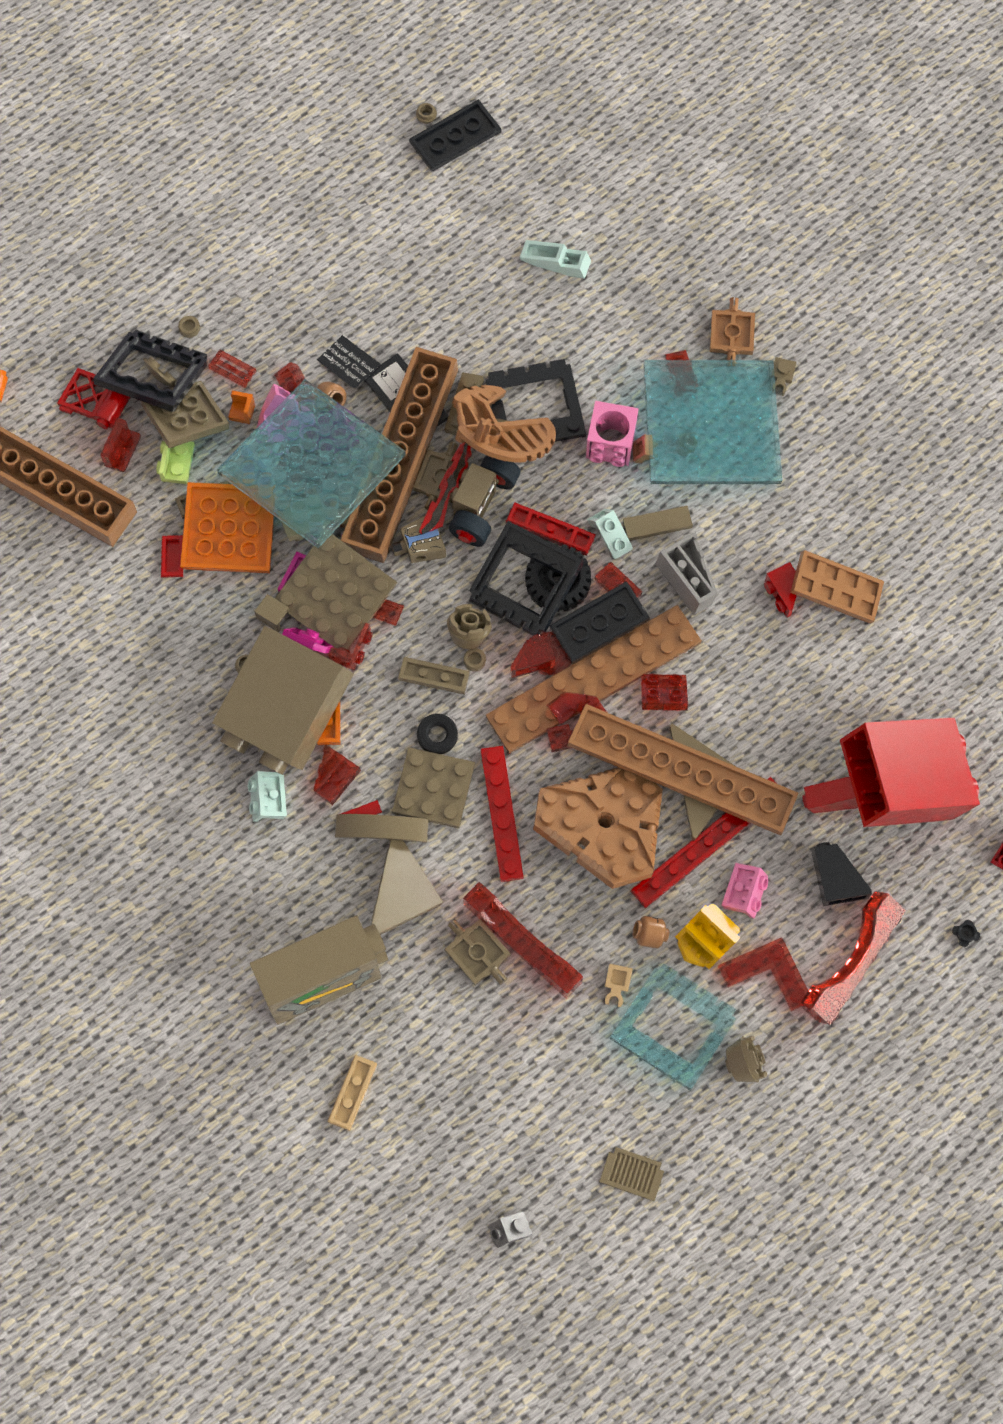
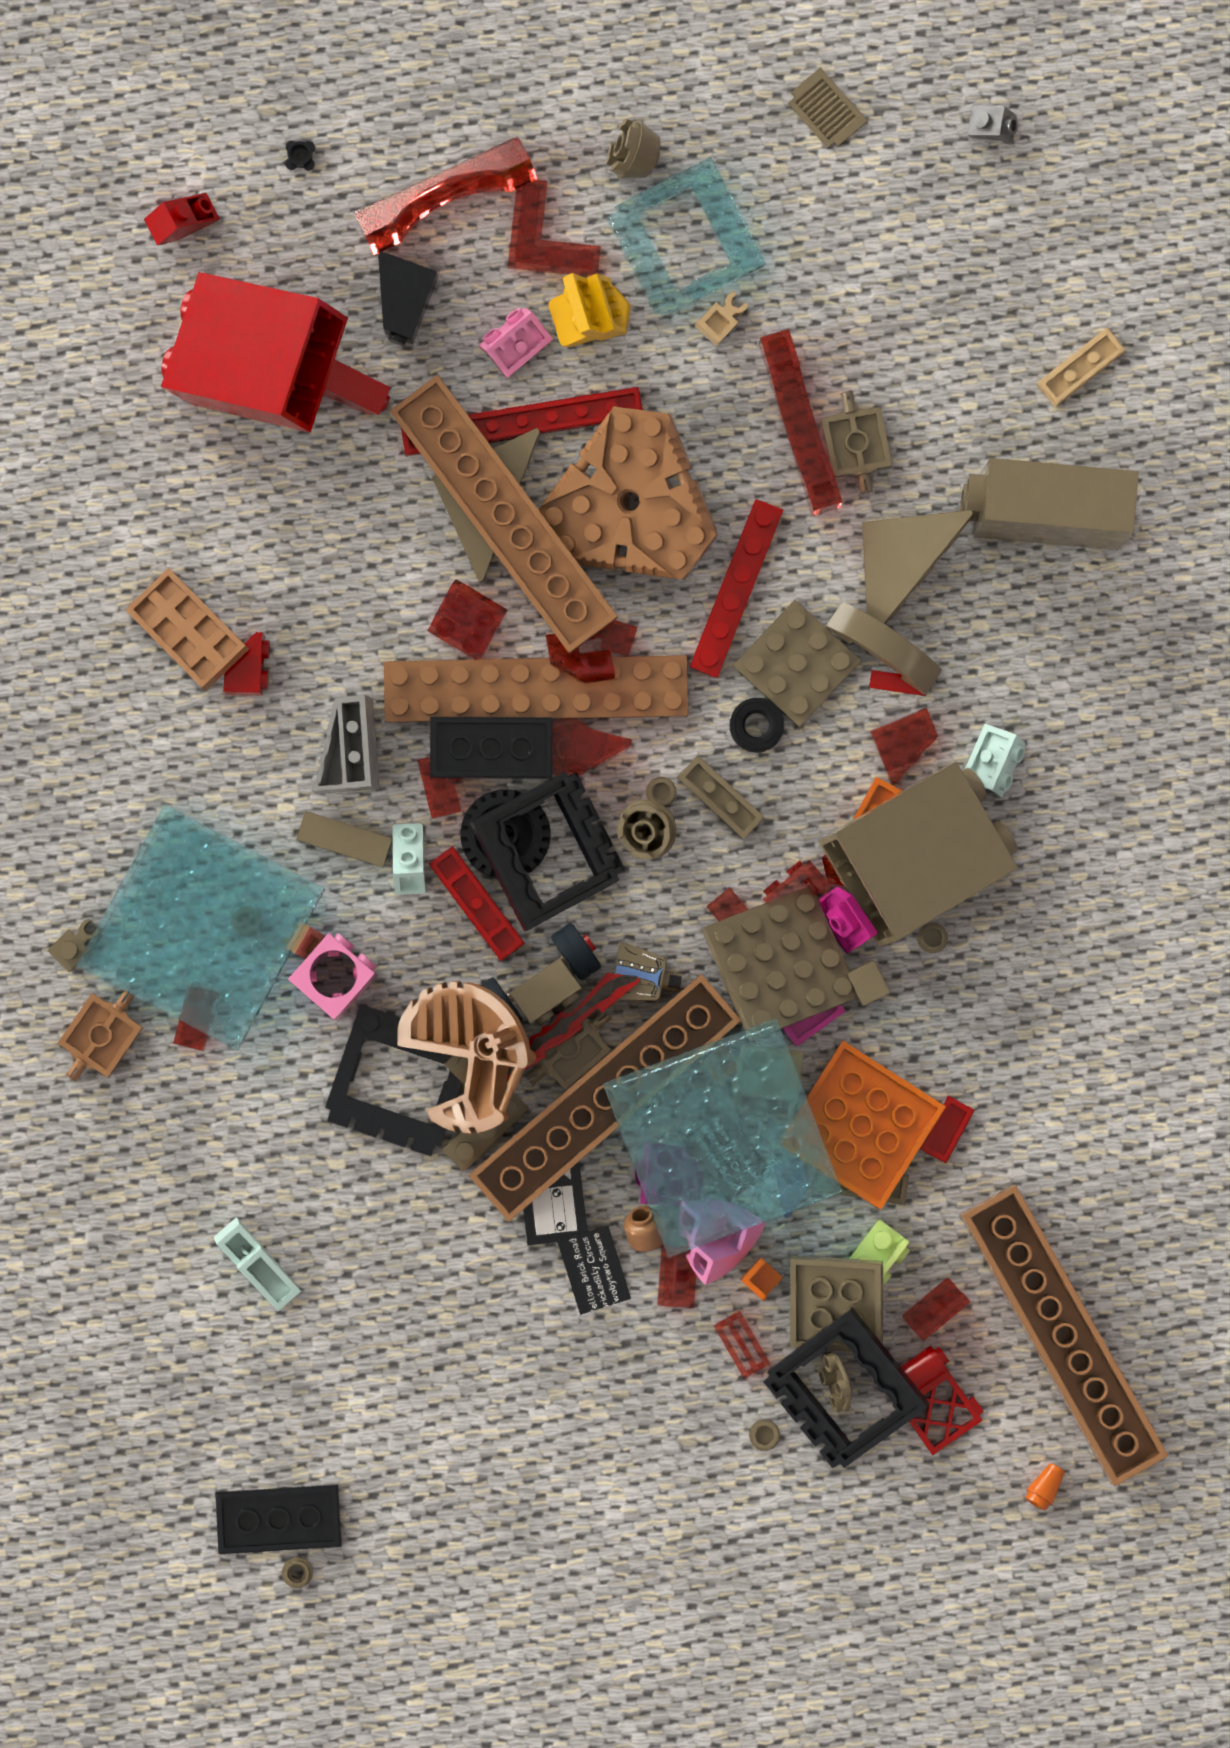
camera: 150 degrees left, 15 degrees up
(650, 932) = (651, 353): medium nougat head -> none

